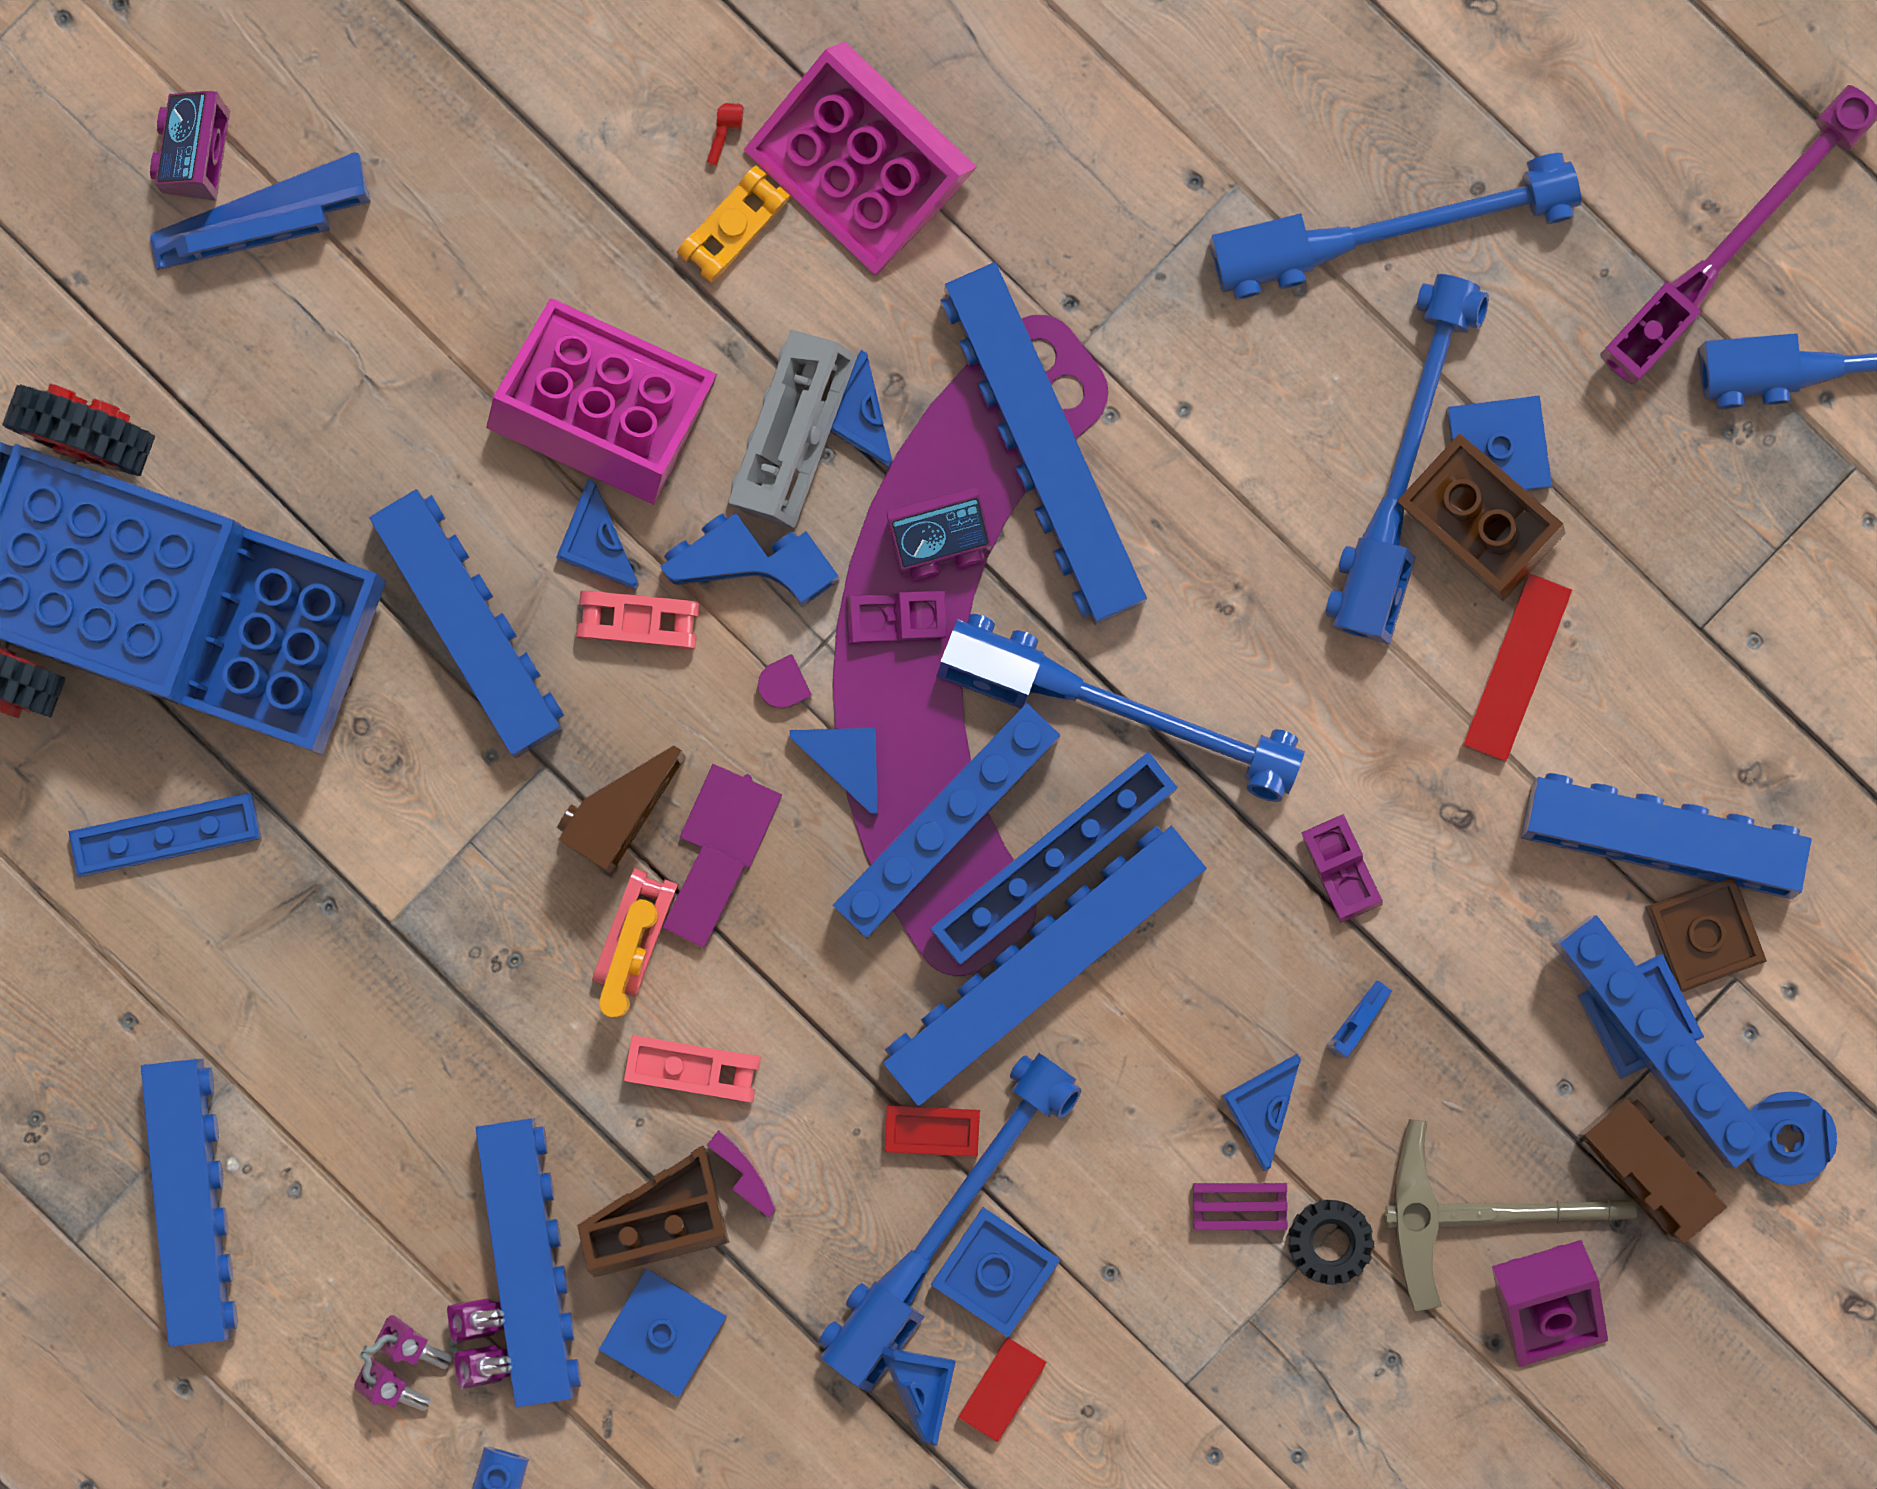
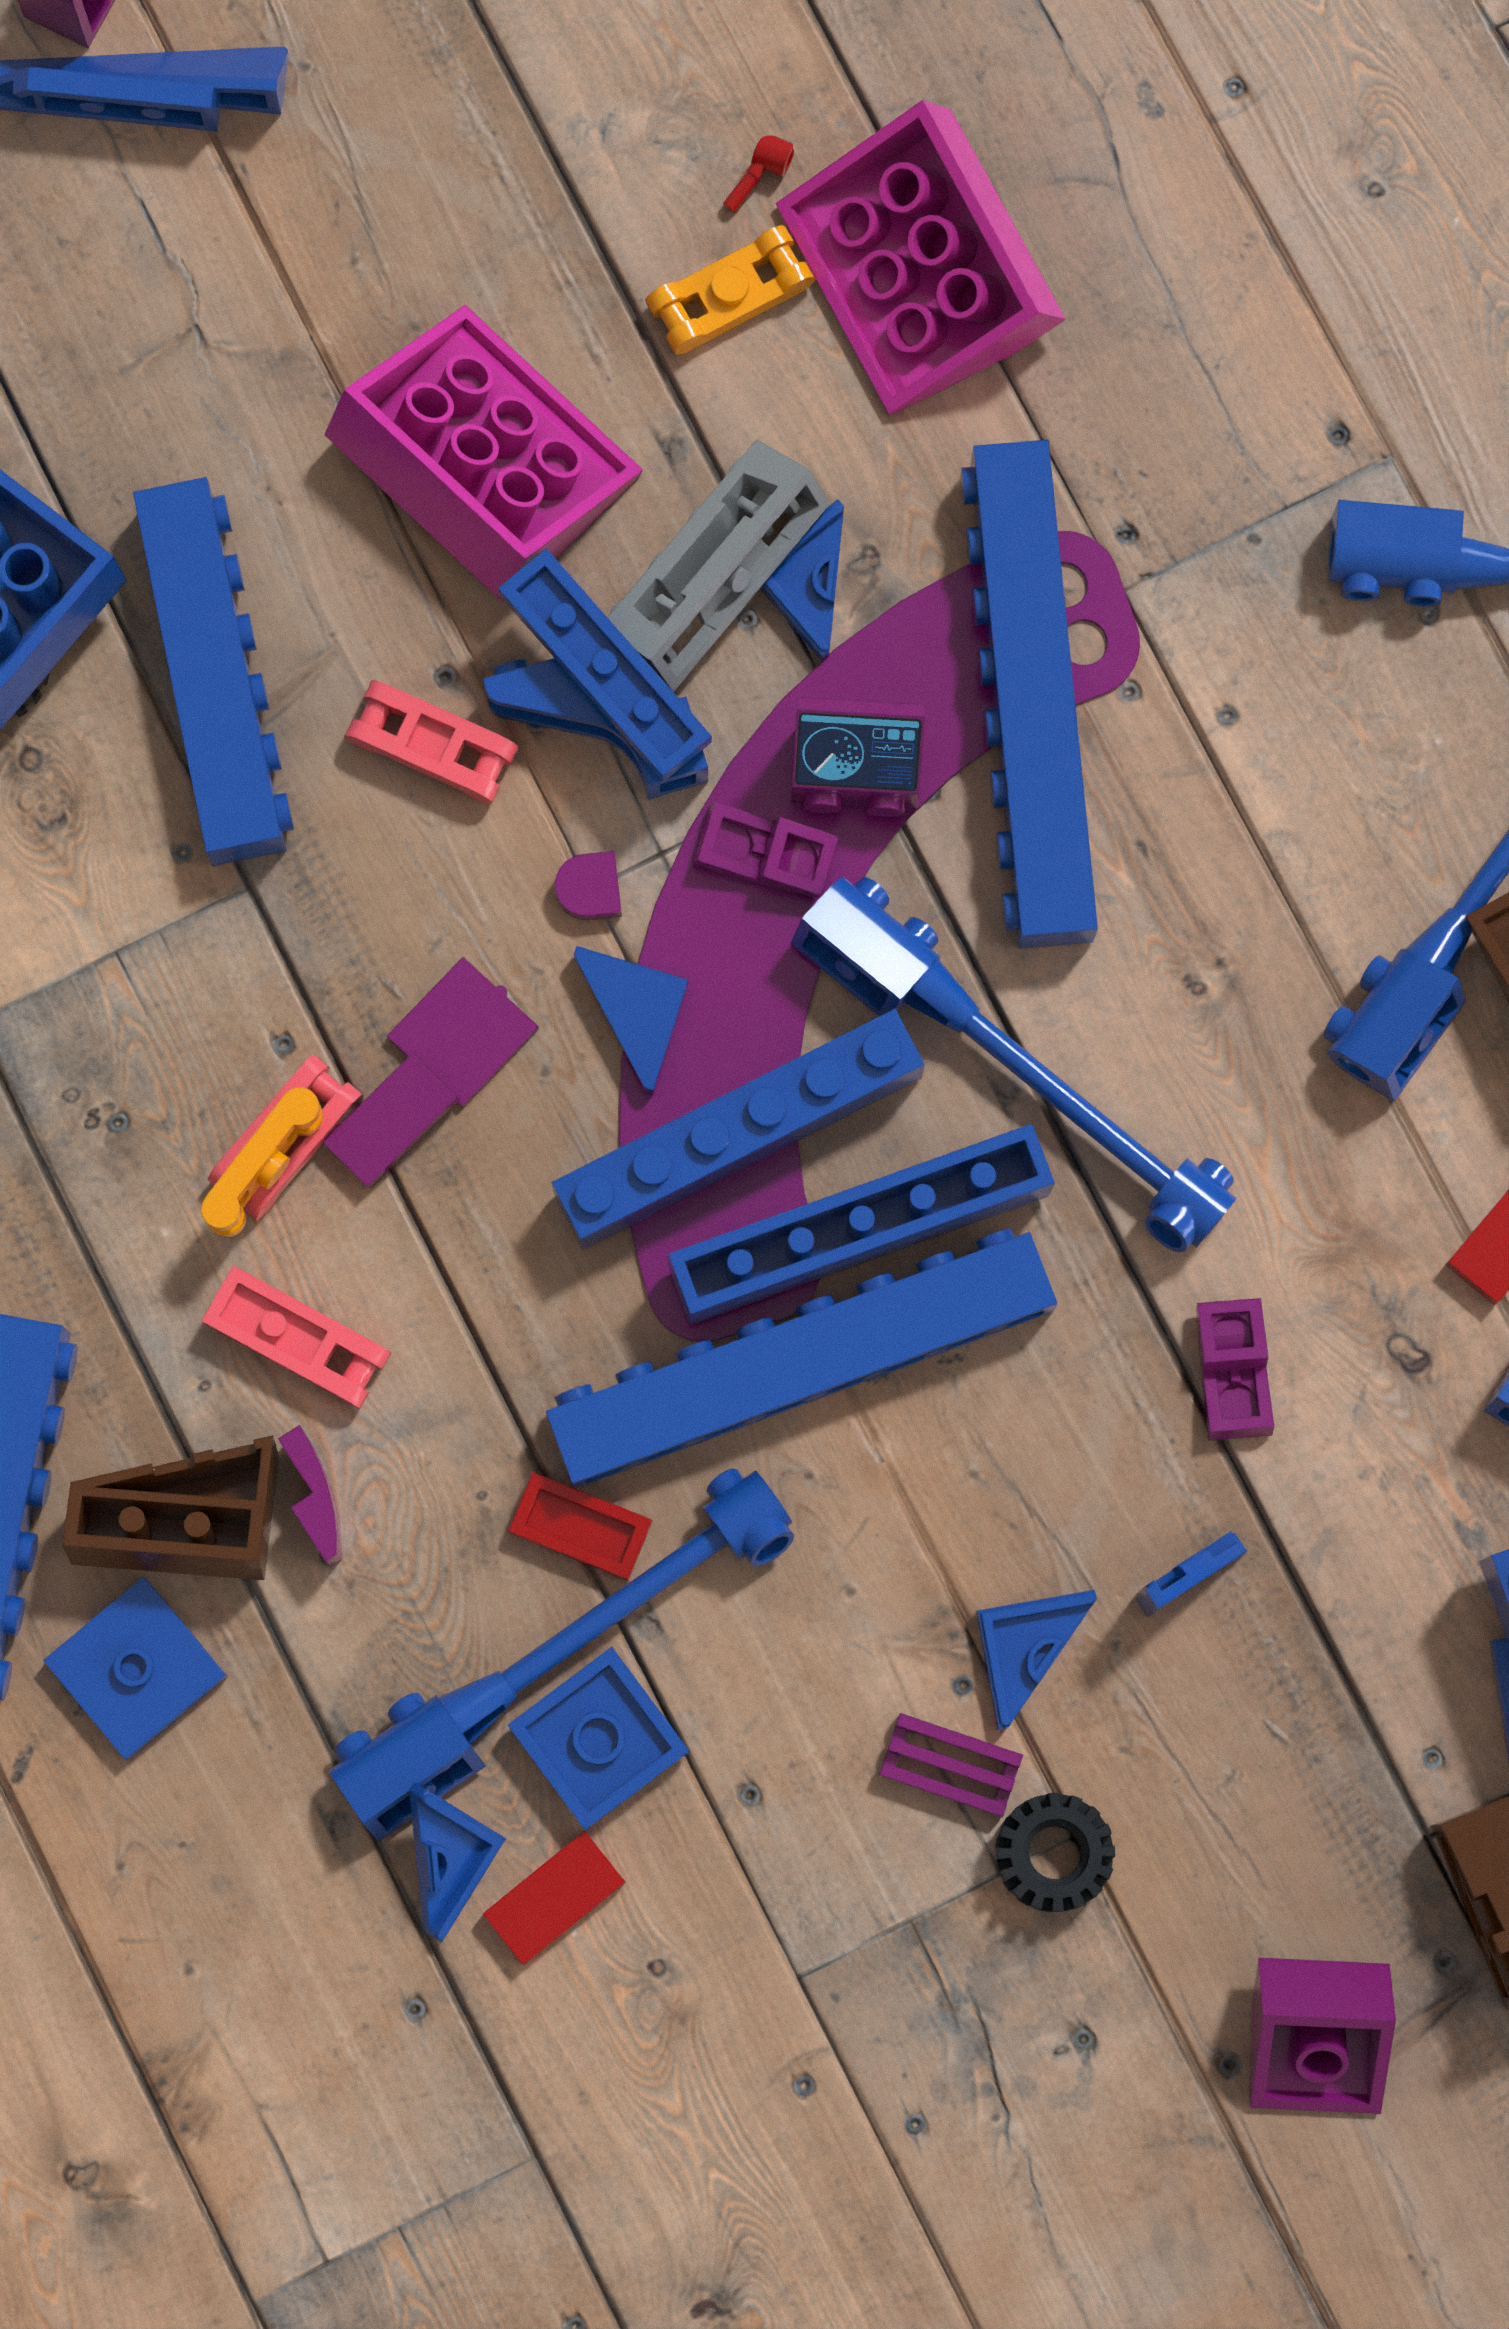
camera: 20 degrees right, 5 degrees down
(593, 541) = (410, 626): blue tile -> none
(615, 814) = (317, 969): reddish brown slope -> none
(743, 530) = (605, 665): none -> blue plate
(1419, 1216) = (1183, 1860): dark tan piece -> none

